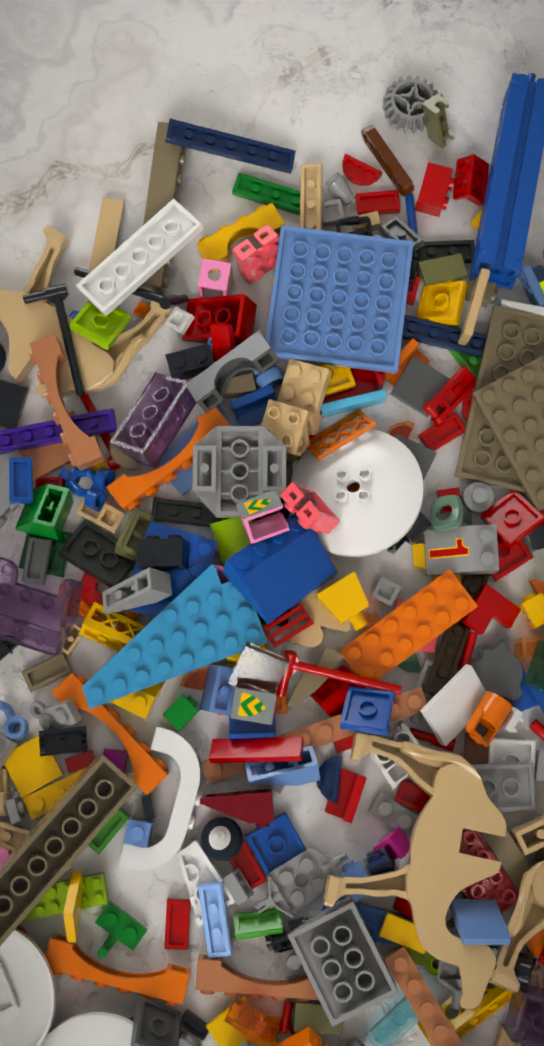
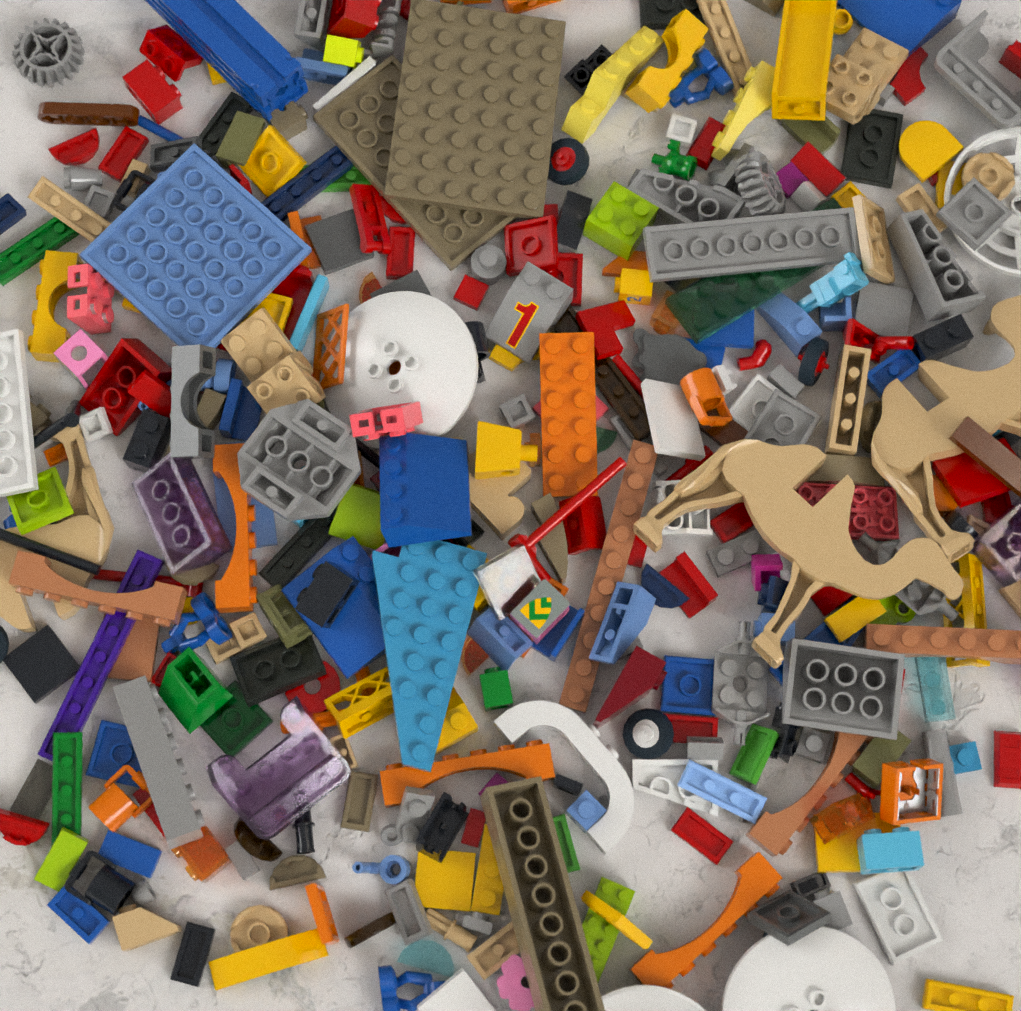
camera: 60 degrees left, 5 degrees down
(21, 480) = (144, 690): blue tile -> none
(37, 560) = (238, 733): dark grey tile -> none
(120, 927) = (667, 896): green plate -> none
(137, 591) = (345, 645): light grey slope -> none
(256, 749) = (584, 637): red tile -> none
(258, 507) = (350, 466): piece -> none
(305, 615) = (486, 501): red tile -> none
(367, 710) = (620, 502): blue tile -> none
(436, 119) = (86, 40): olive hinge -> none
(455, 520) = (496, 297): sand green piece -> none
(474, 307) = (302, 133): tan tile -> none
(479, 922) = (889, 533): medium blue tile -> none

